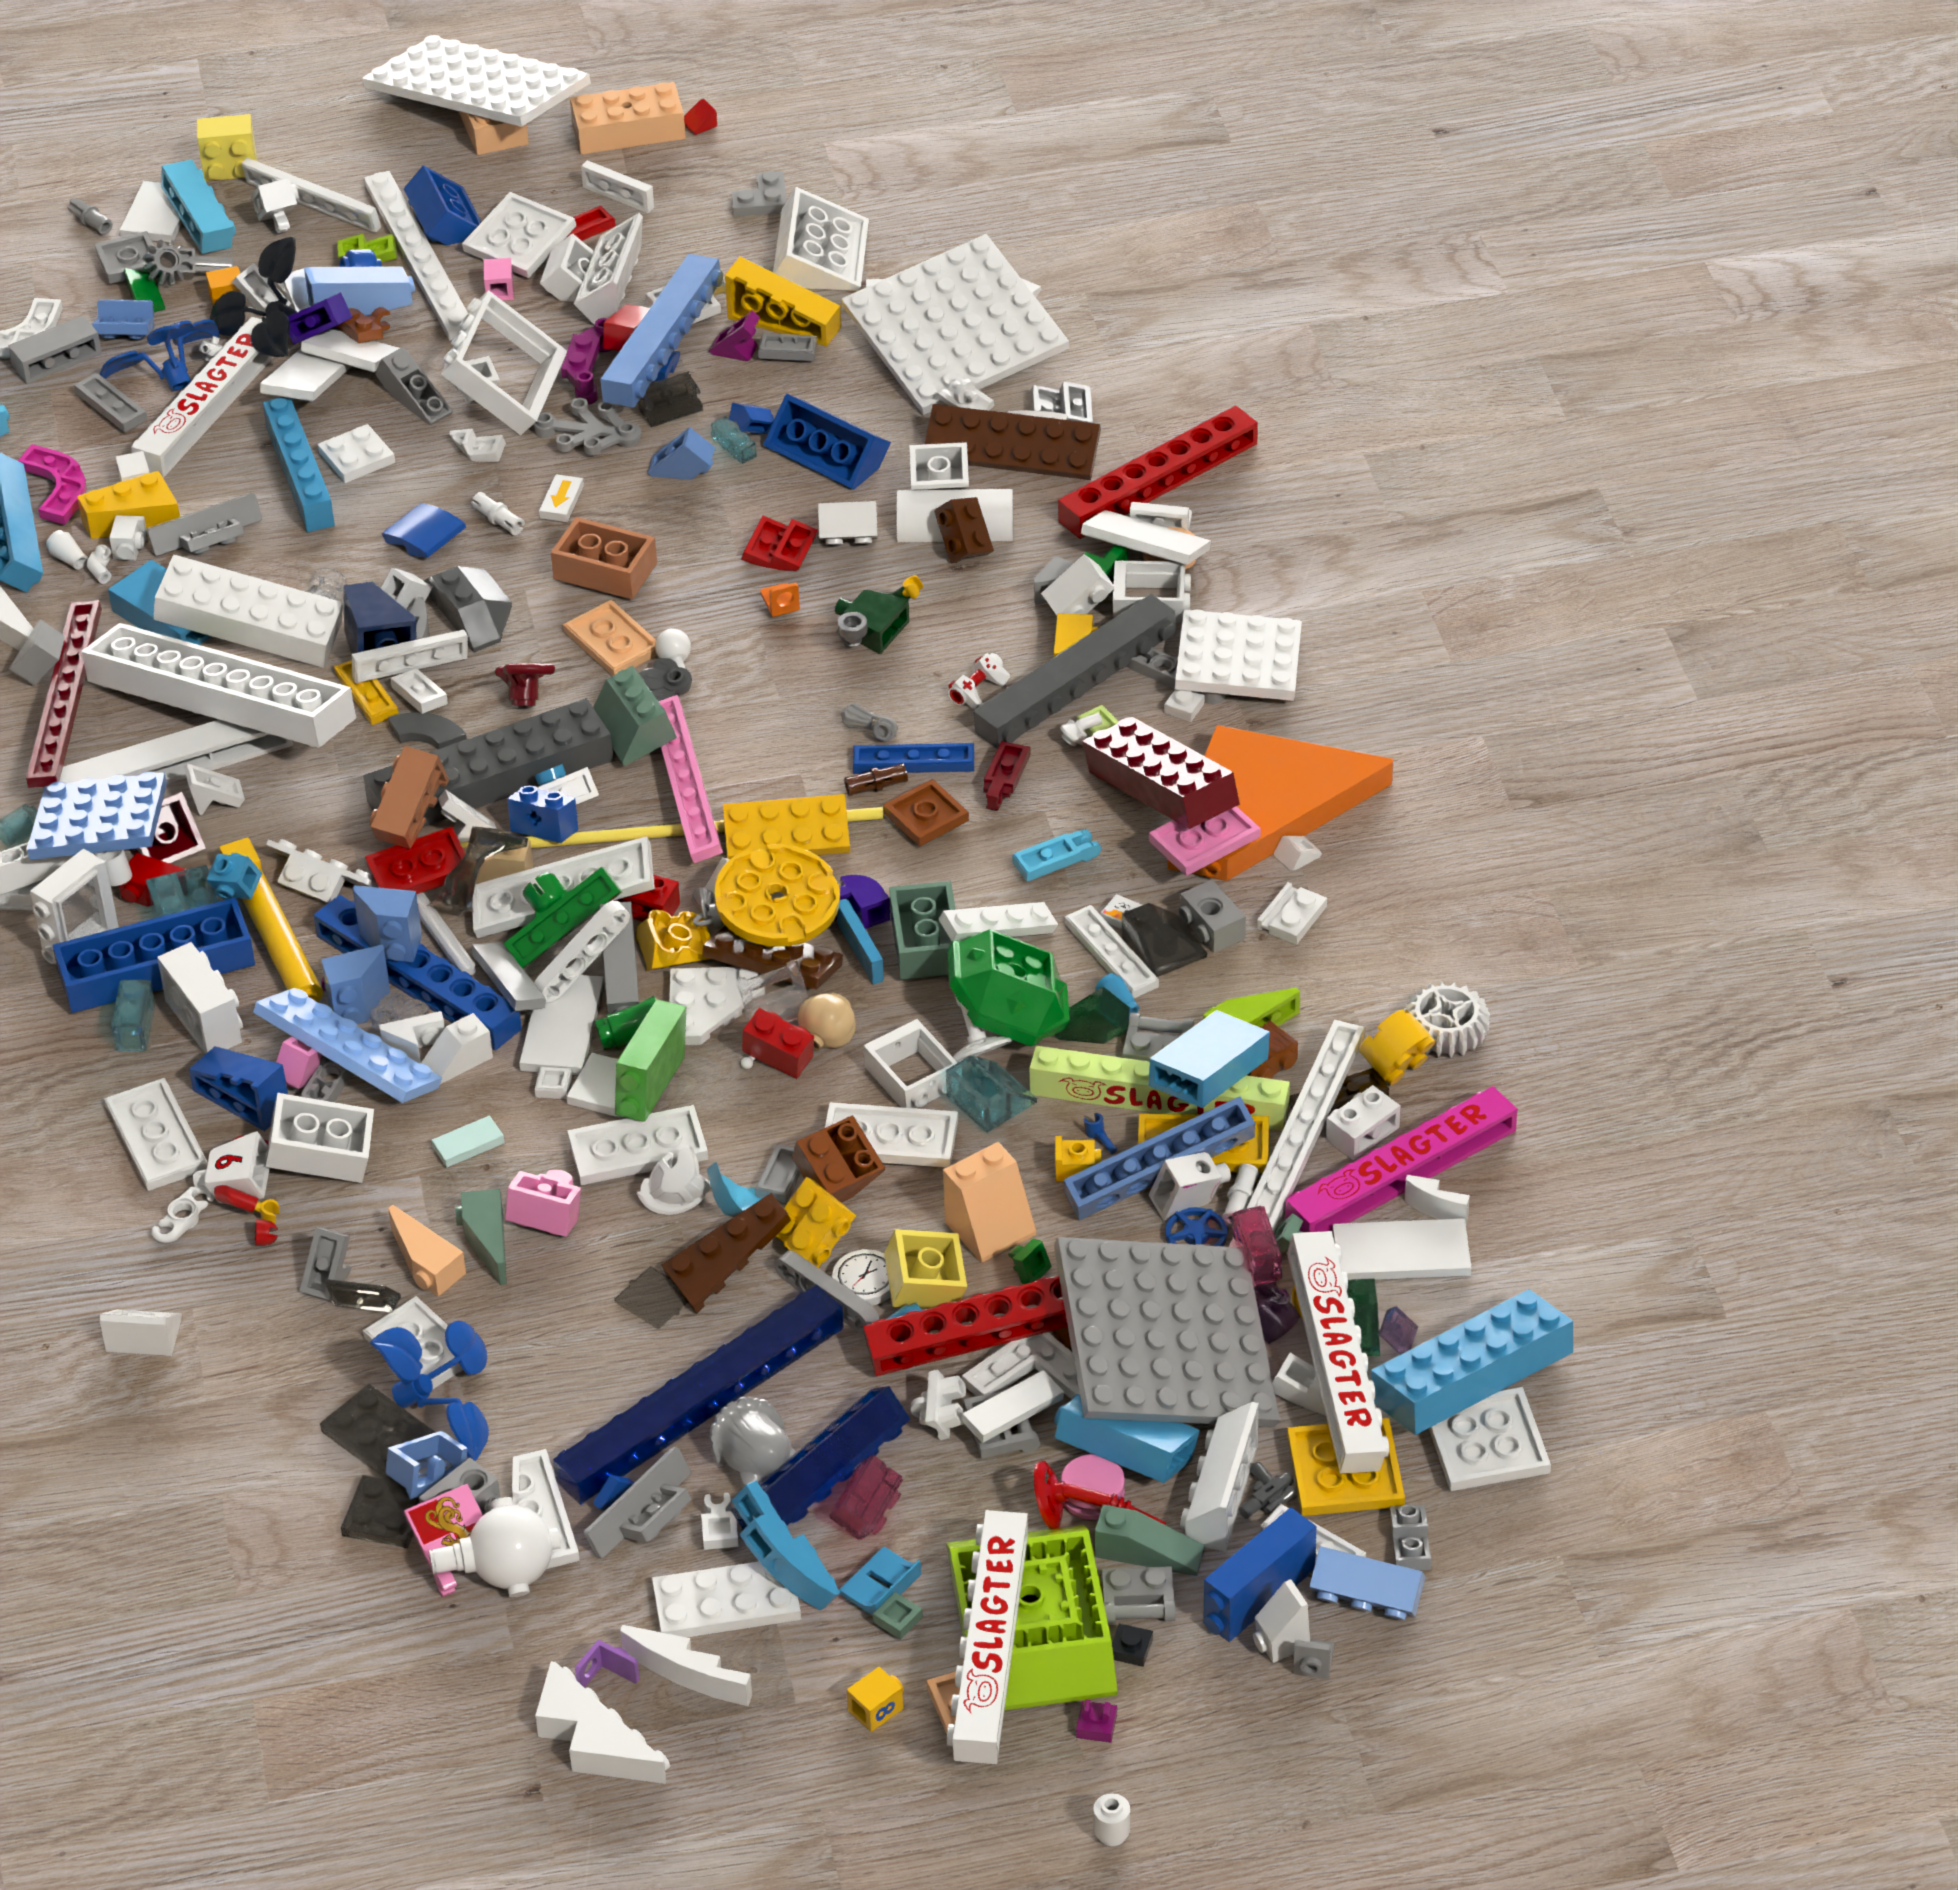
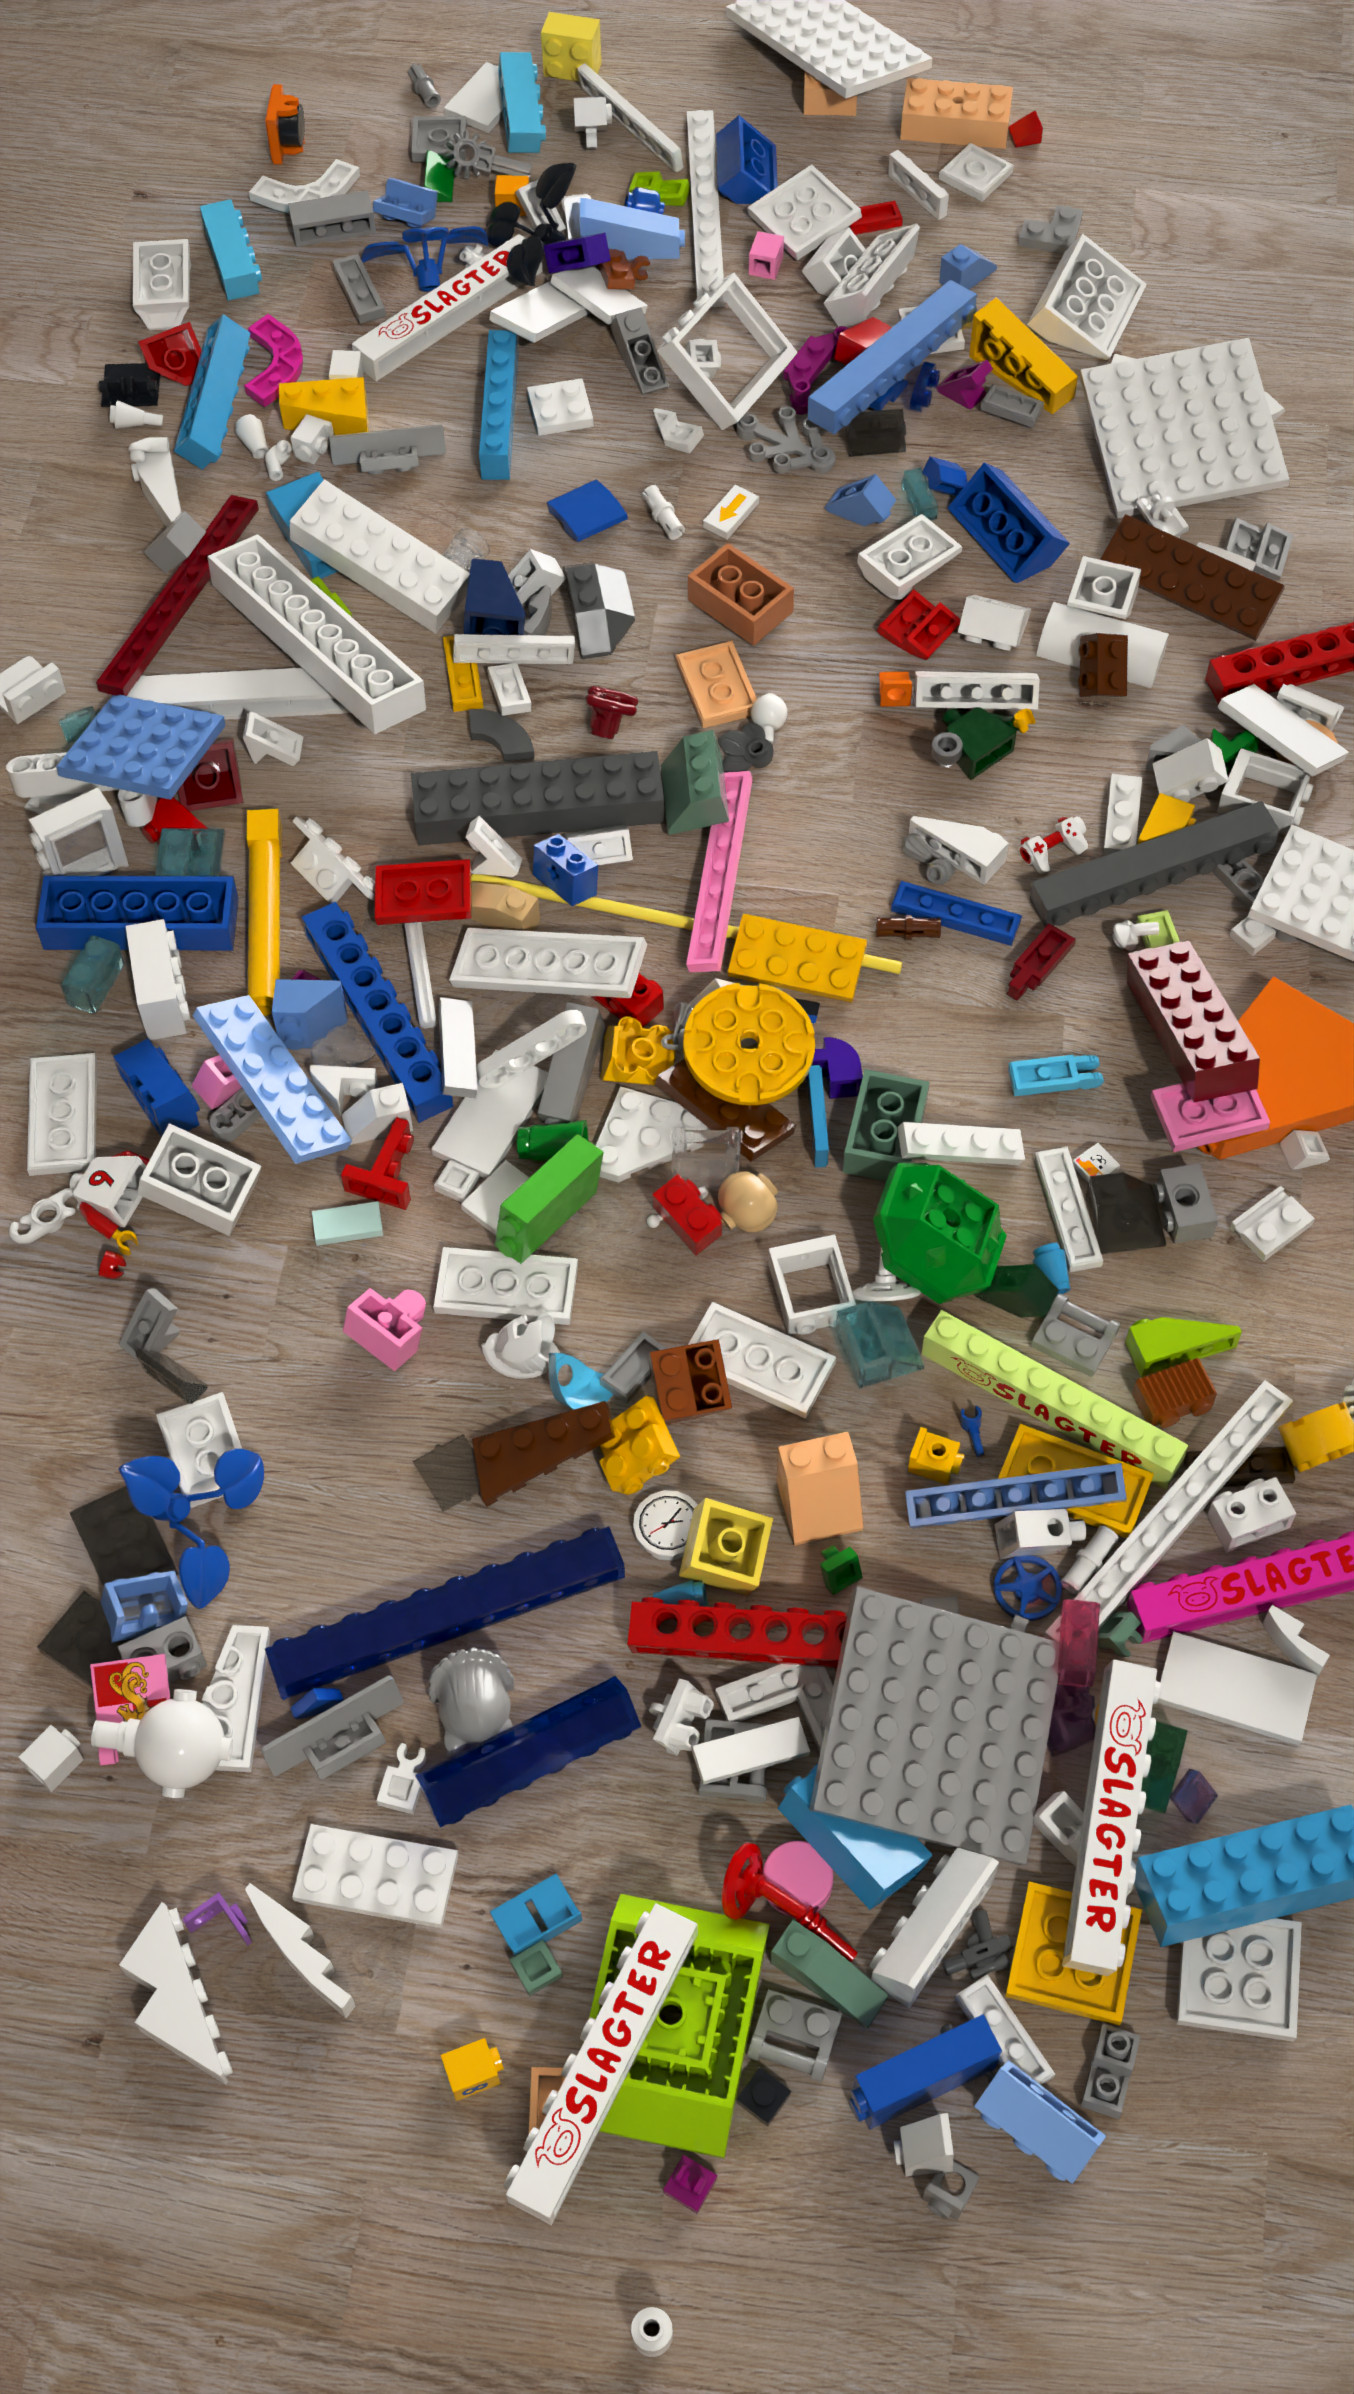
camera: 20 degrees right, 15 degrees up
(234, 876) = (238, 854): dark azure brick -> none
(389, 919) = (361, 957): medium blue slope -> none
(396, 1600) = (52, 1757): none -> white brick
(407, 796) = (432, 819): nougat wedge -> none
(430, 1258) = (249, 1349): light nougat slope -> none
(460, 882) = (485, 893): clear smoke animal -> none
(484, 1228) = (320, 1331): sand green slope -> none
(486, 1097) = (382, 1182): none -> red bracket
(550, 775) = (591, 826): dark azure tile -> none
(558, 912) = (529, 993): green plate -> none
(666, 164) = (976, 172): none -> white tile
(692, 241) = (965, 267): none -> medium blue slope
(699, 344) = (922, 392): none -> clear blue plate
(745, 491) = (907, 557): none -> white slope
(786, 1558) = (445, 1868): dark azure slope -> none
(805, 1275) = (623, 1533): light grey beam -> none
(856, 577) = (976, 690): none -> white brick
(866, 1498) = (559, 1810): clear pink brick -> none
(906, 702) = (965, 846): none -> white slope
(926, 812) = (942, 983): dark orange plate -> none
(1028, 640) = (1122, 813): none -> white plate
(1209, 1058) = (1109, 1396): brick -> none

